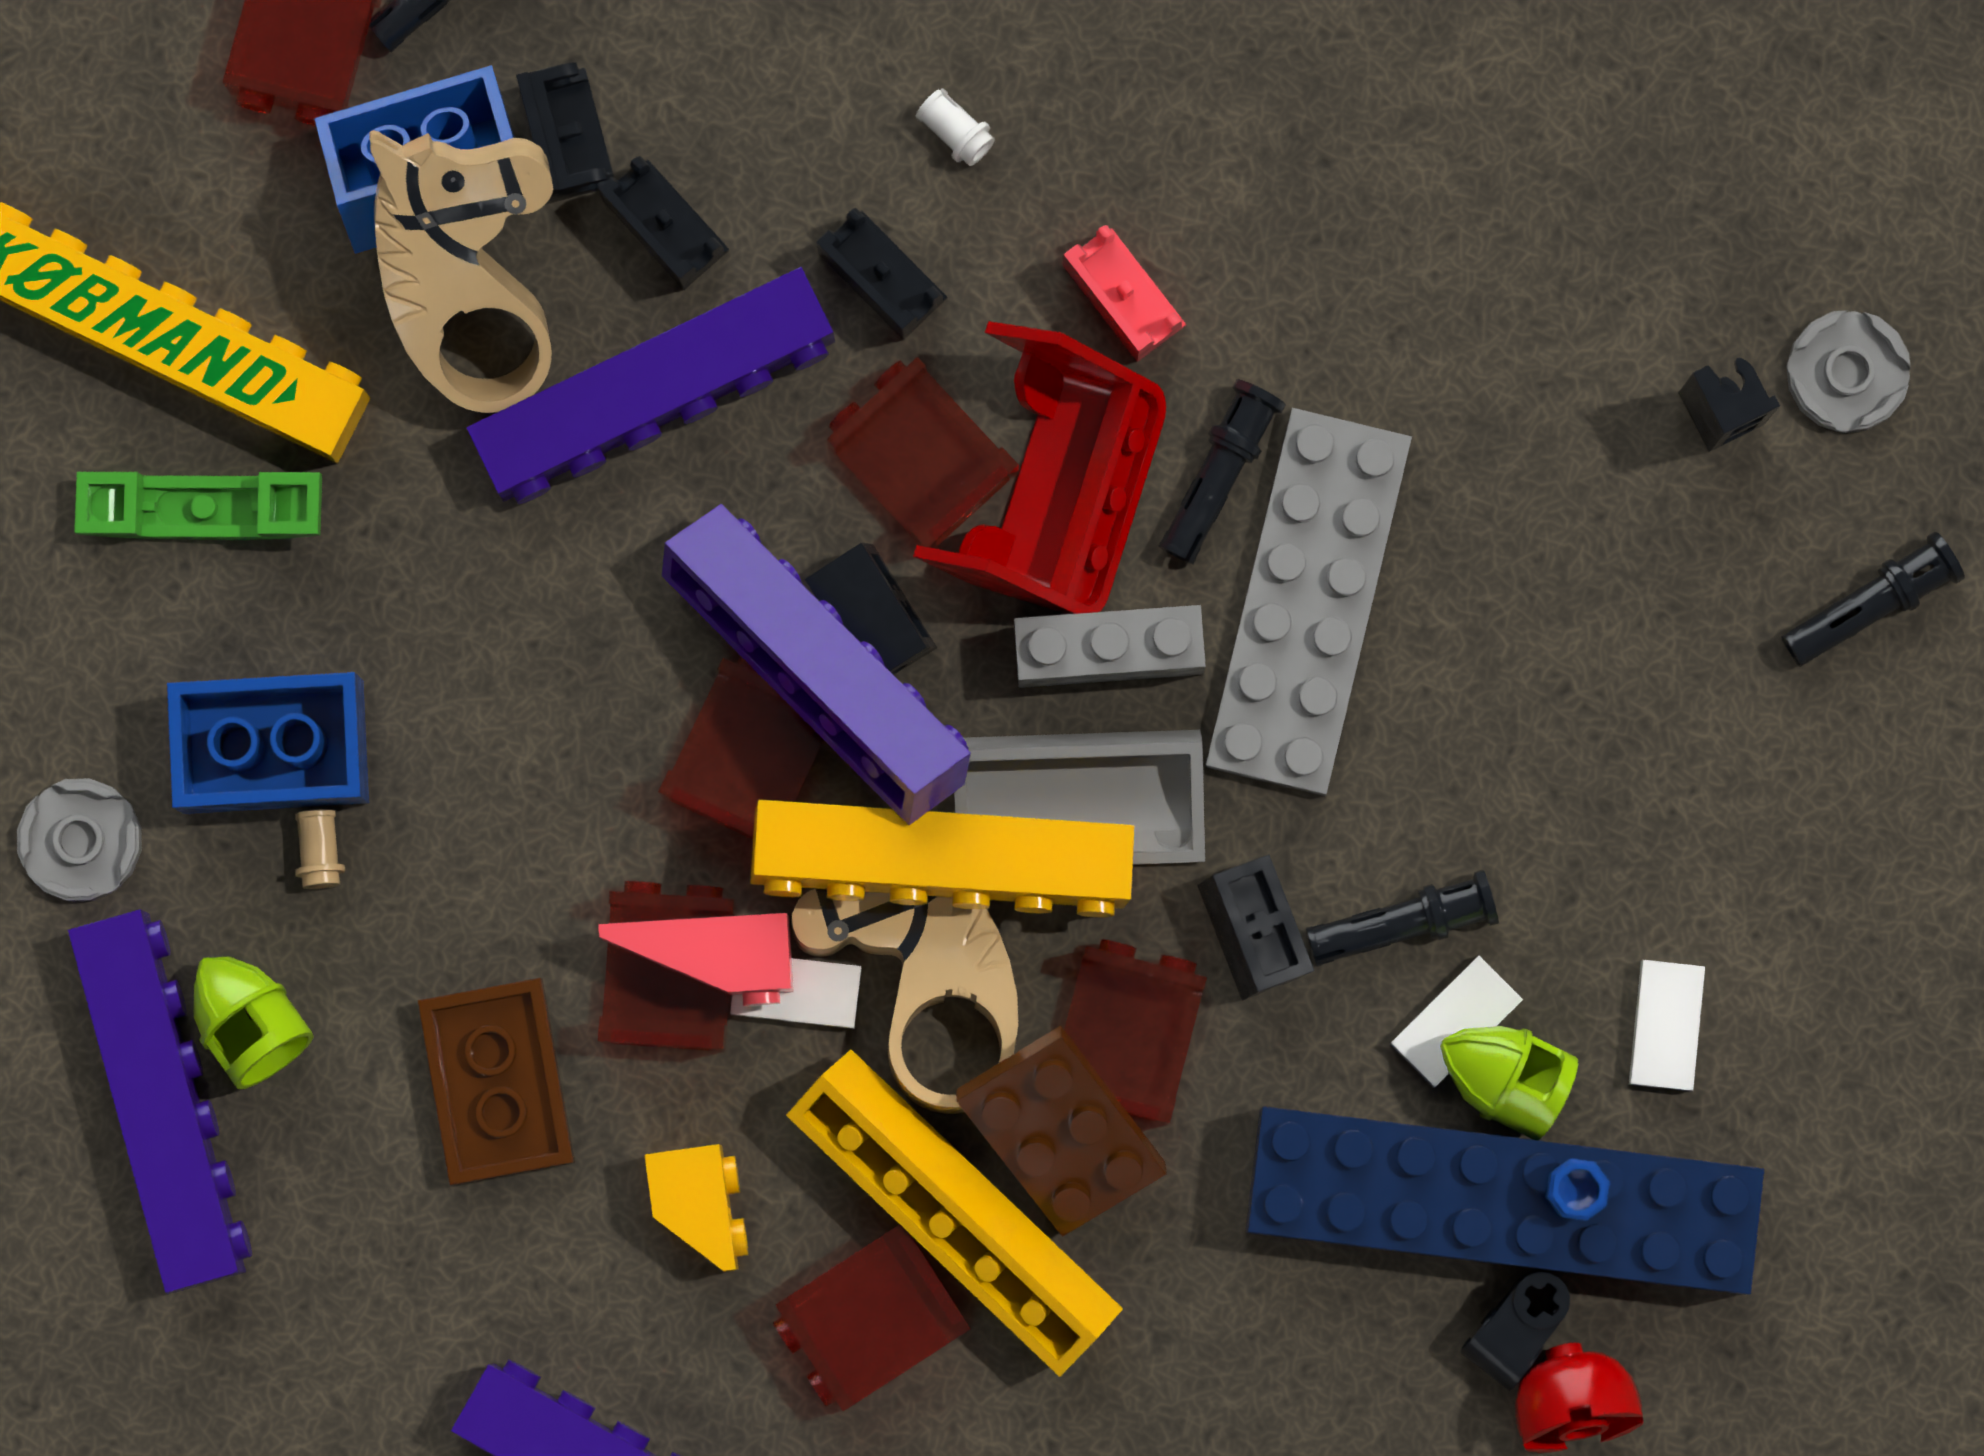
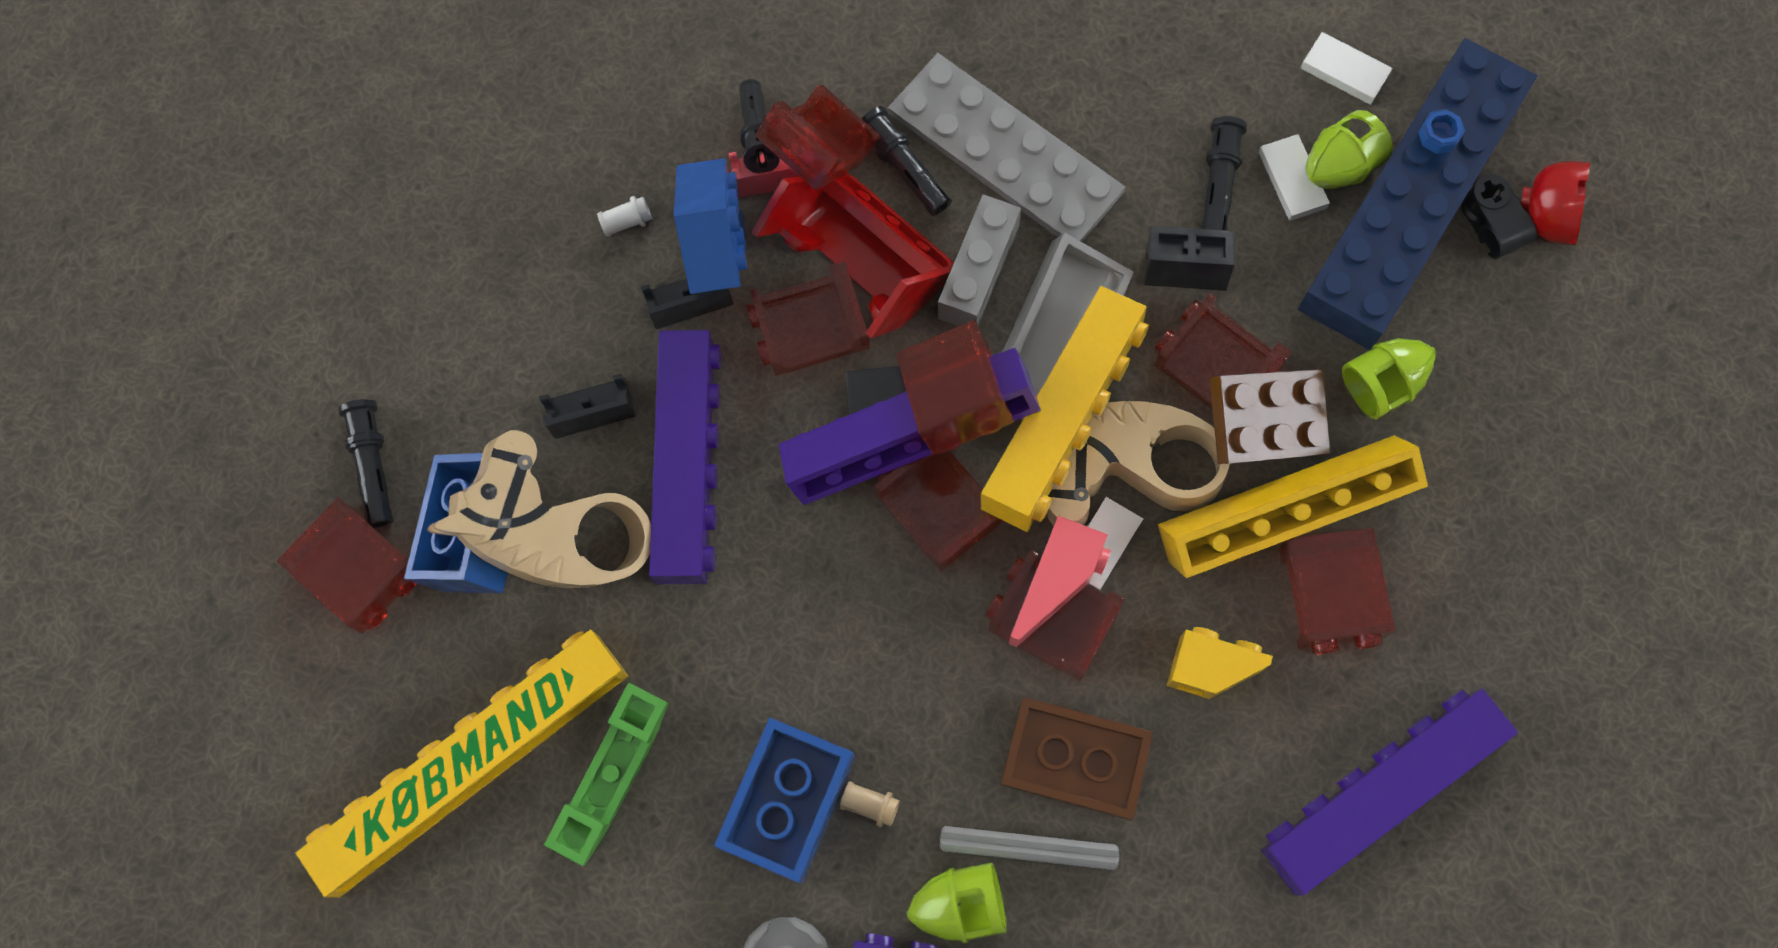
camera: 60 degrees left, 10 degrees down
(358, 1072) = (1029, 848): none -> light grey axle
(566, 128) = (476, 430): black hinge -> none
(881, 696) = (953, 388): none -> clear red panel
(968, 262) = (709, 225): none -> blue brick
(1144, 254) = (753, 116): none -> black pin
(1171, 341) = (818, 137): none -> clear red panel
(1206, 1270) = (1388, 375): none -> lime helmet

